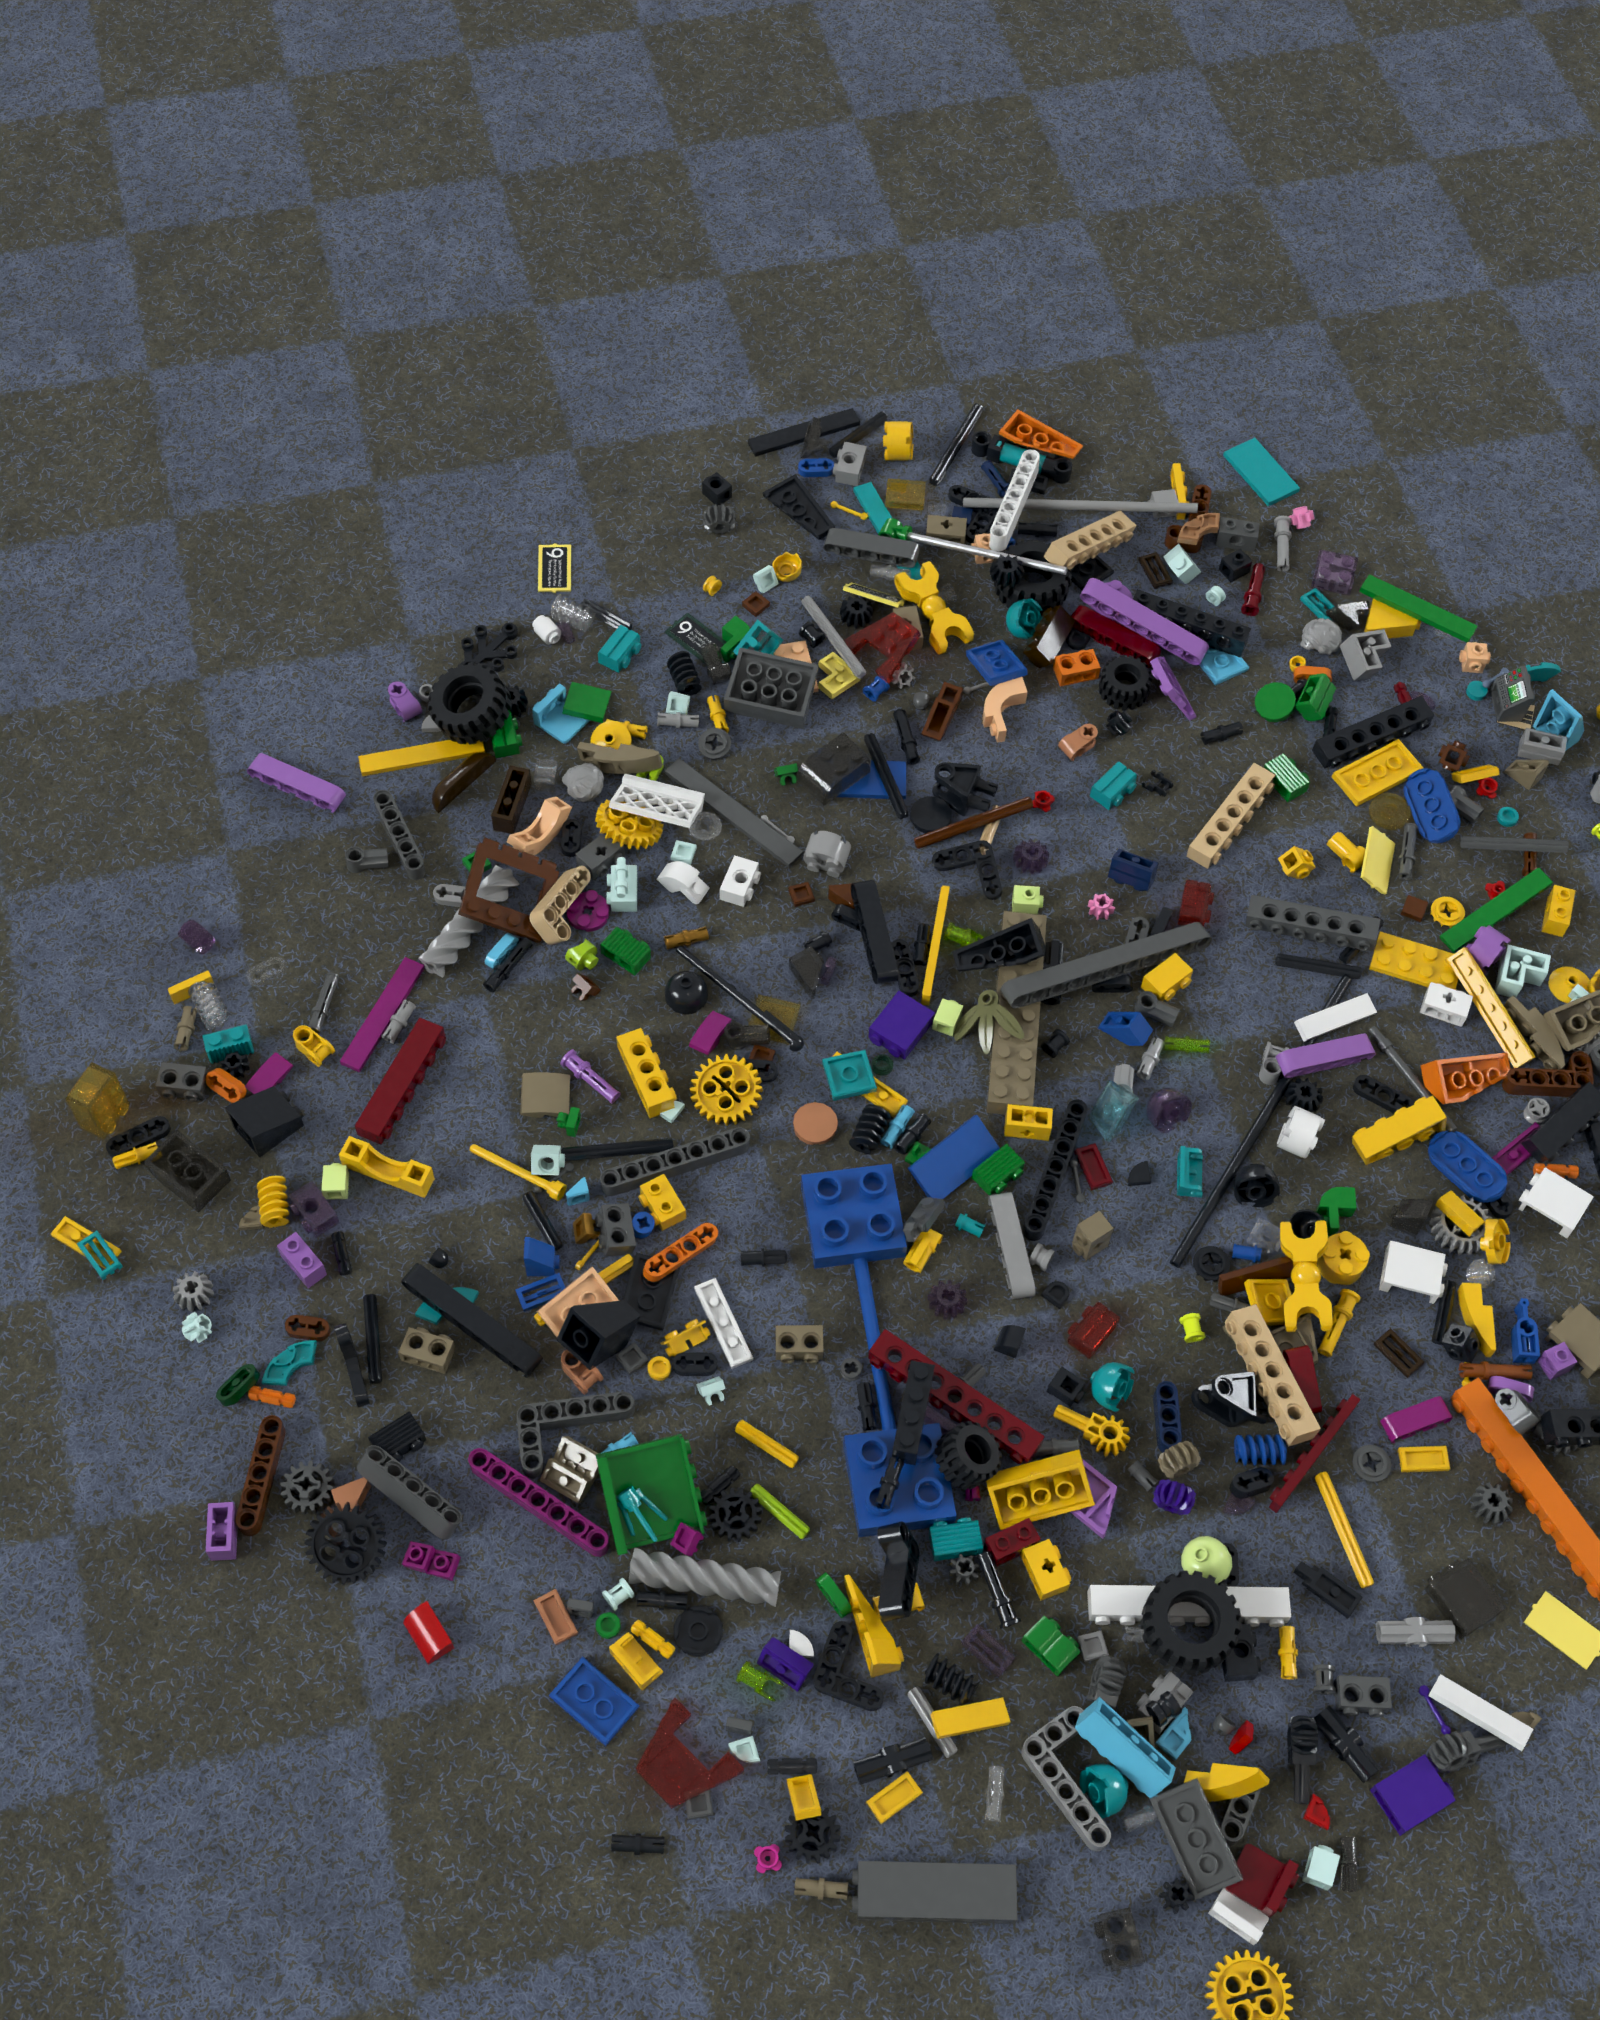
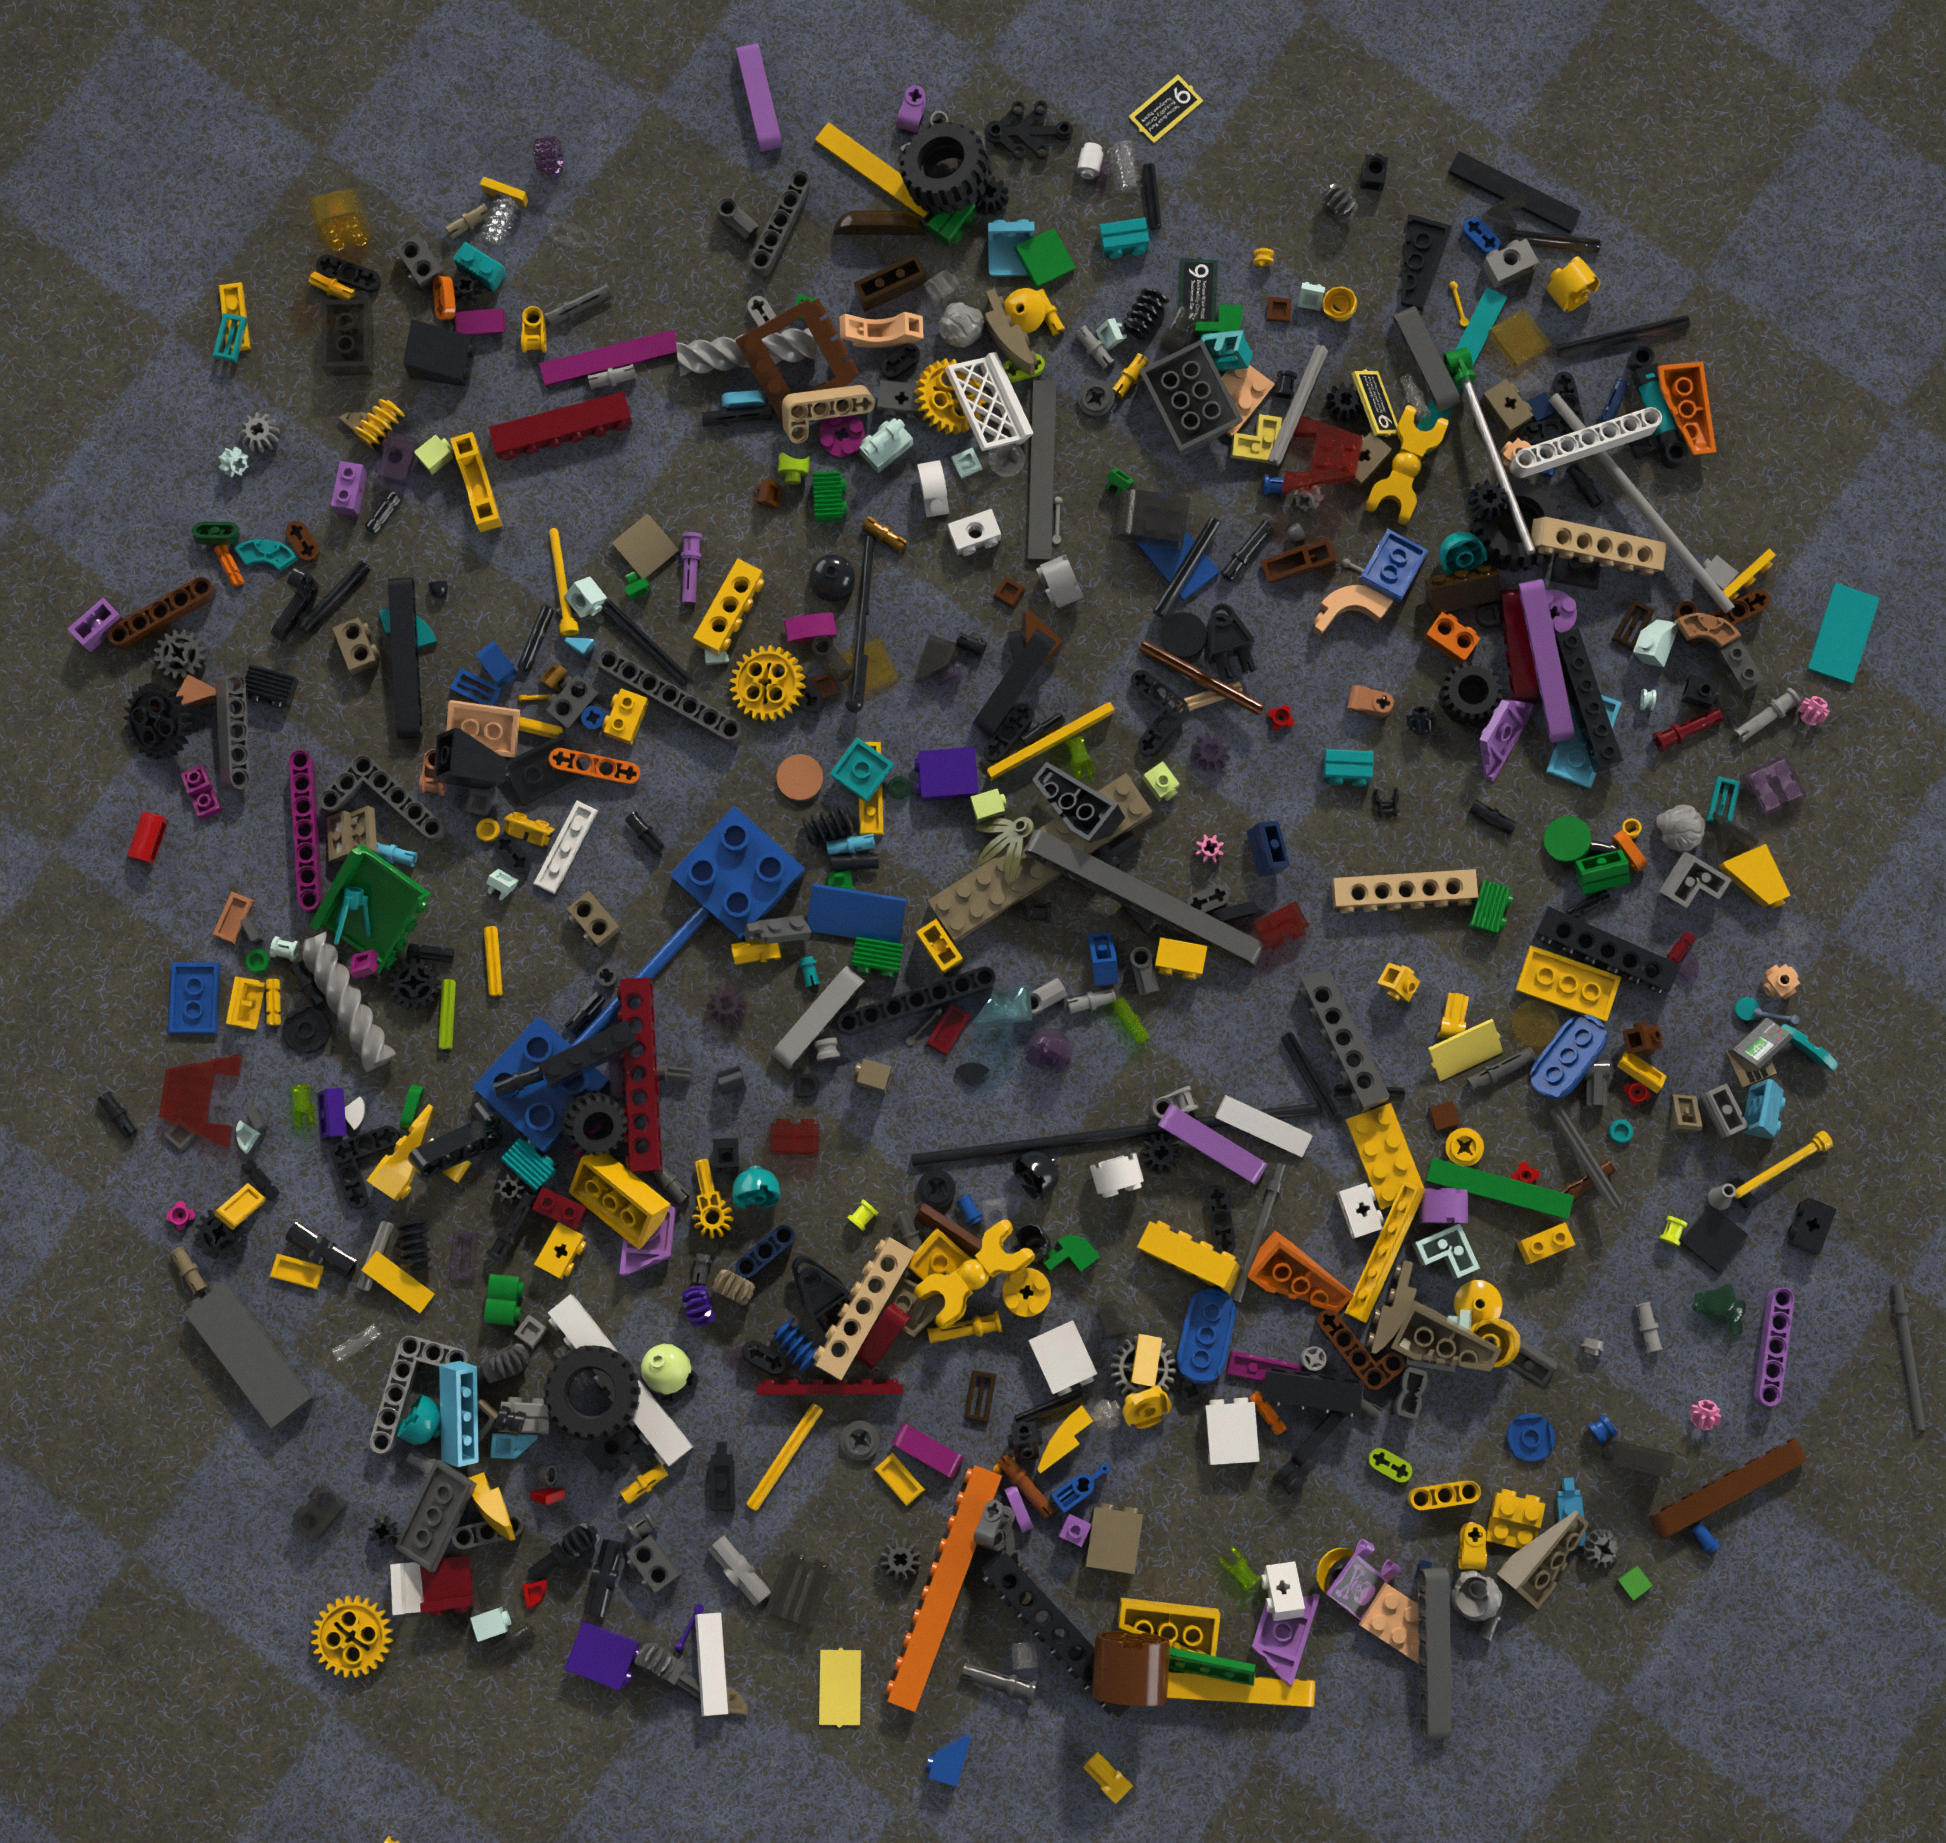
camera: 50 degrees right, 20 degrees up
(1189, 1172) = (1007, 1112): teal hinge -> none
(1418, 608) = (1787, 893): green tile -> none

